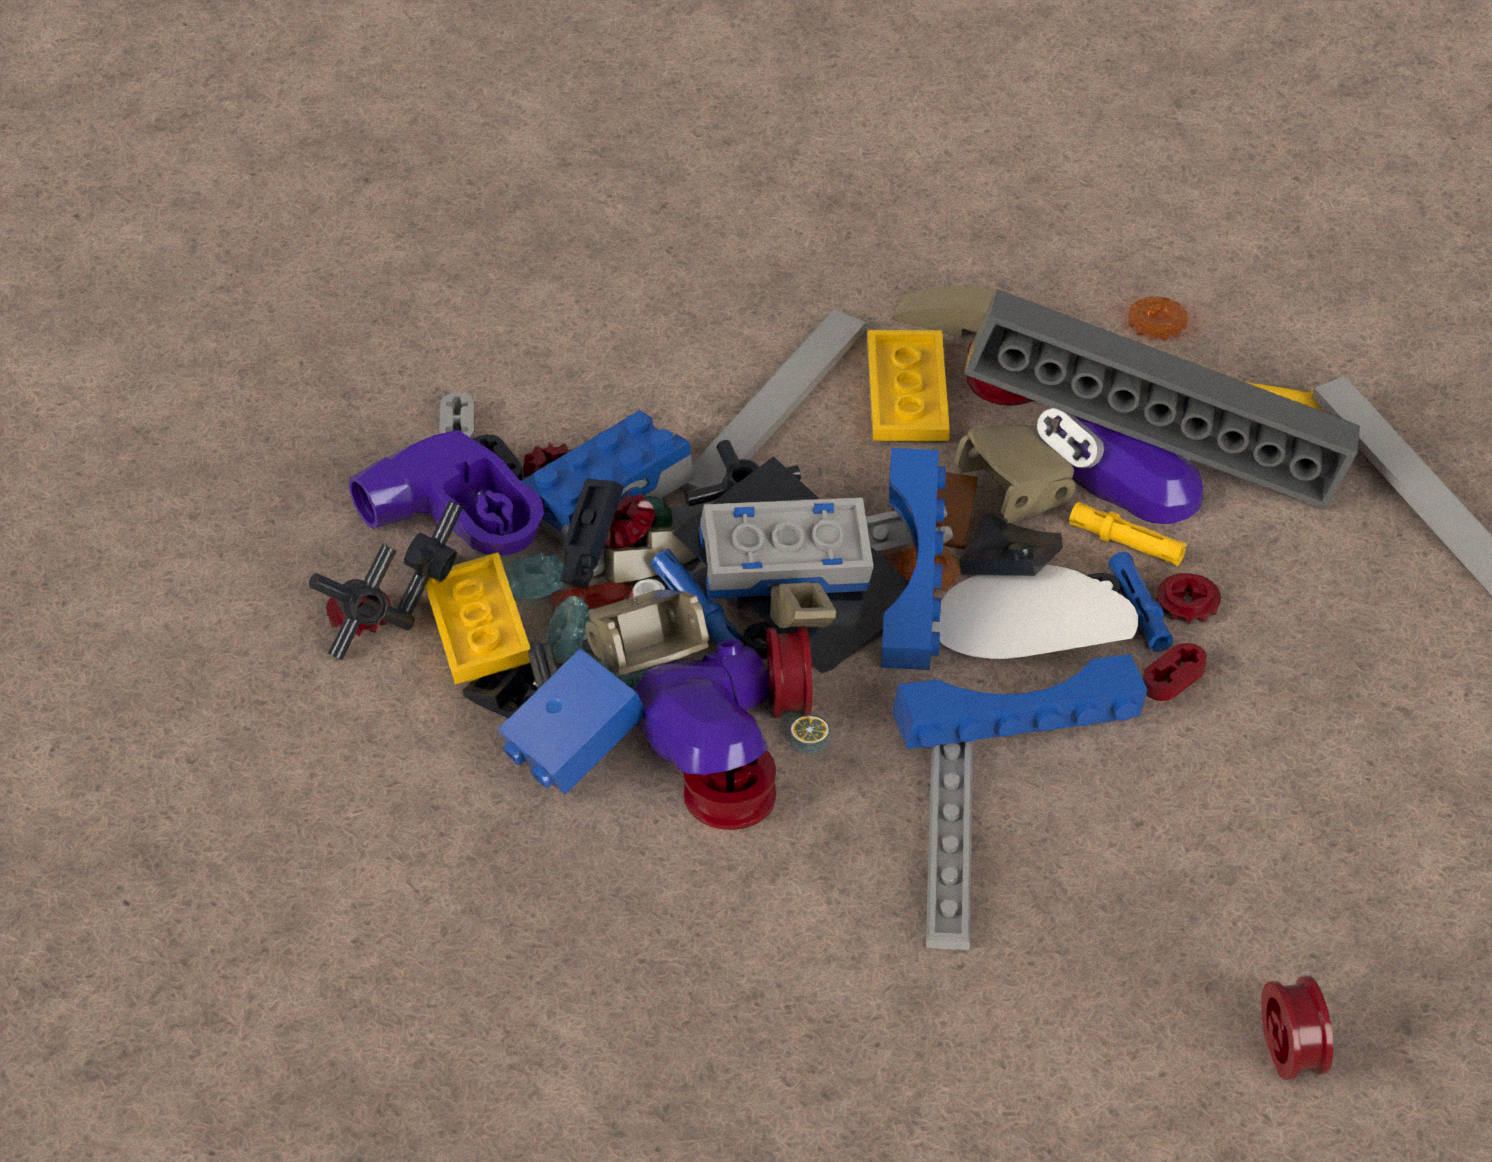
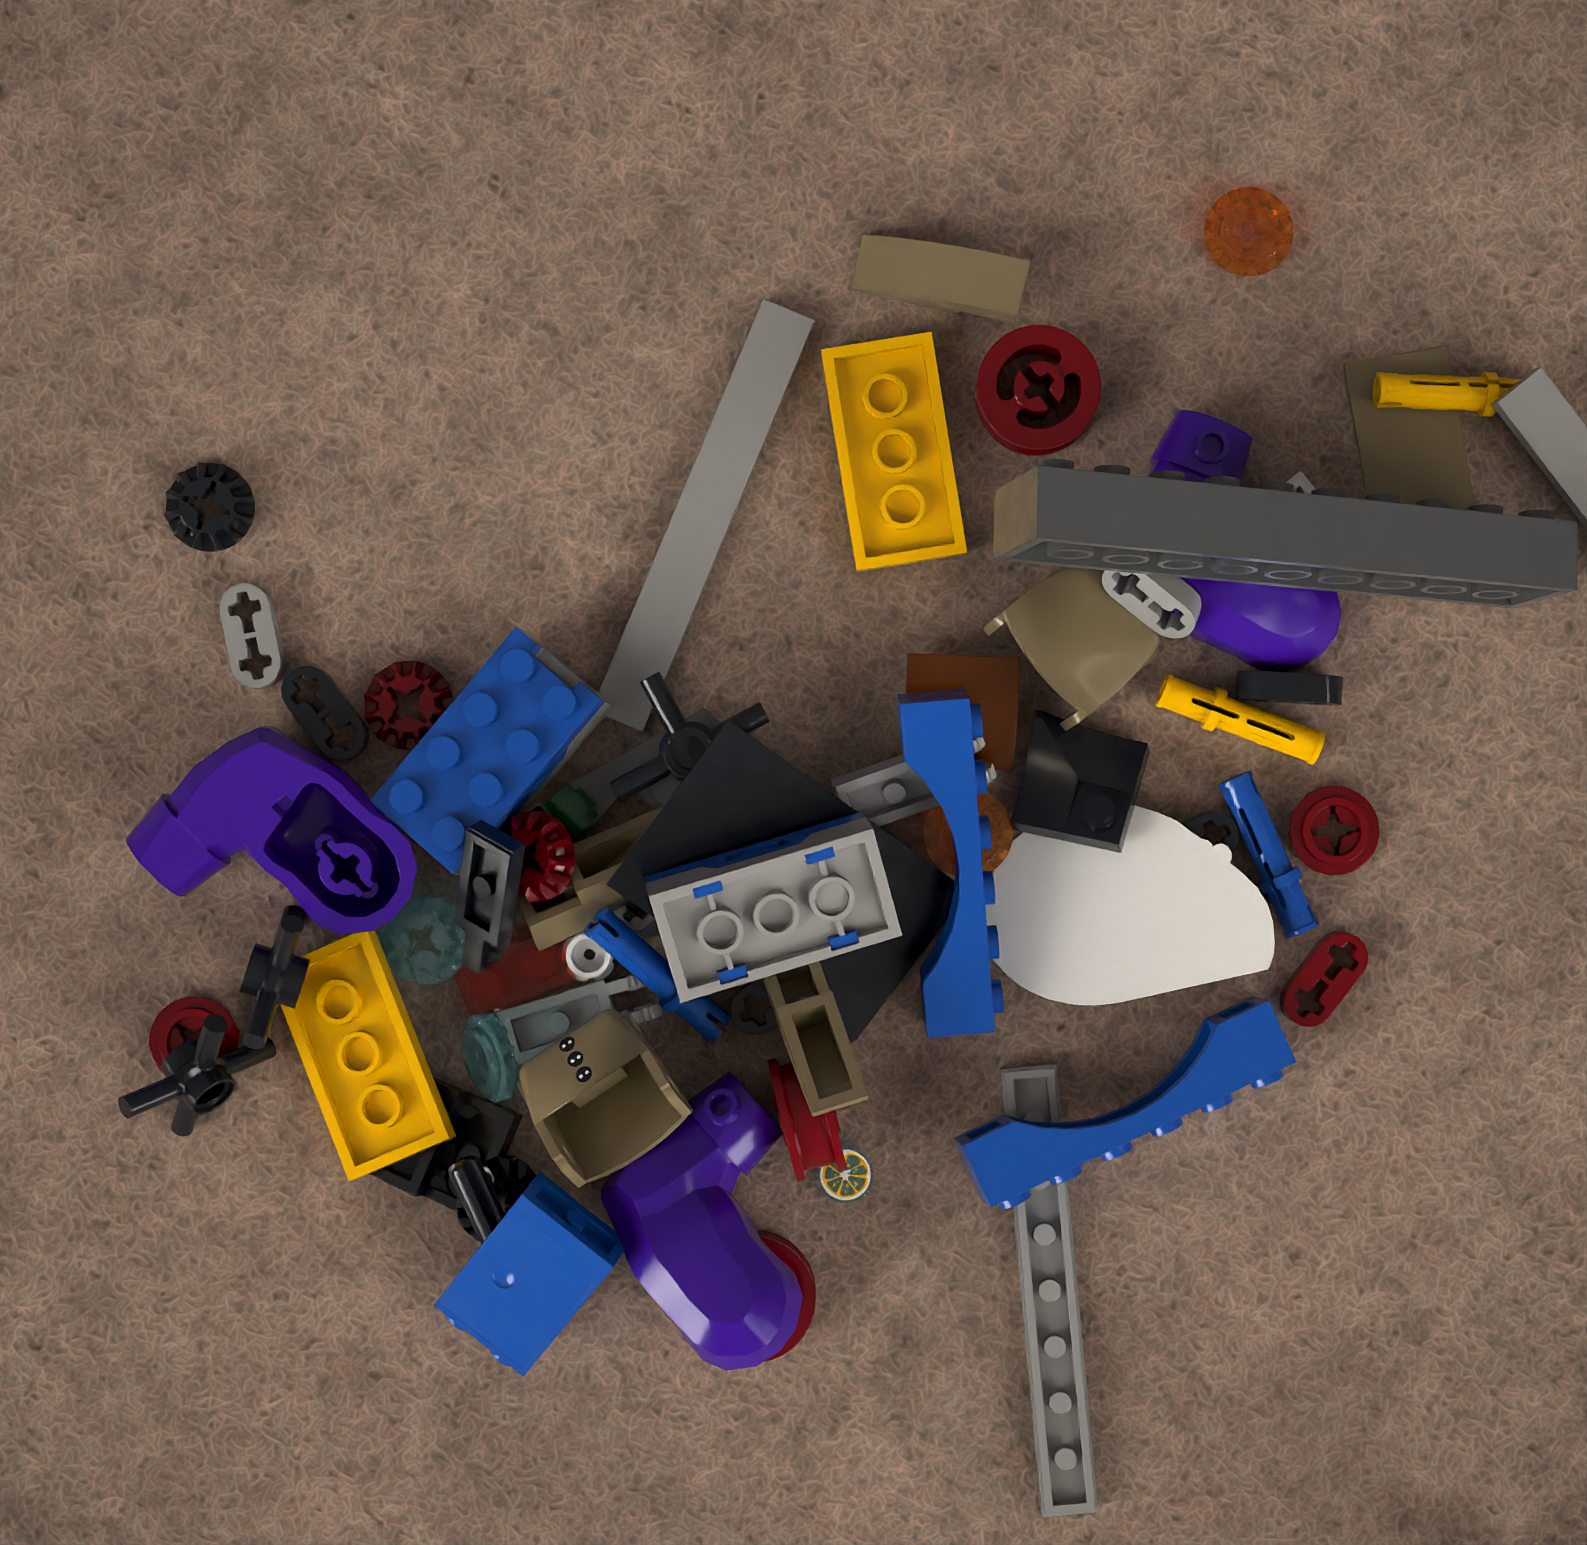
camera: 10 degrees left, 45 degrees up
(449, 372) = (220, 530): none -> black gear
(1165, 518) = (1289, 688): none -> black beam

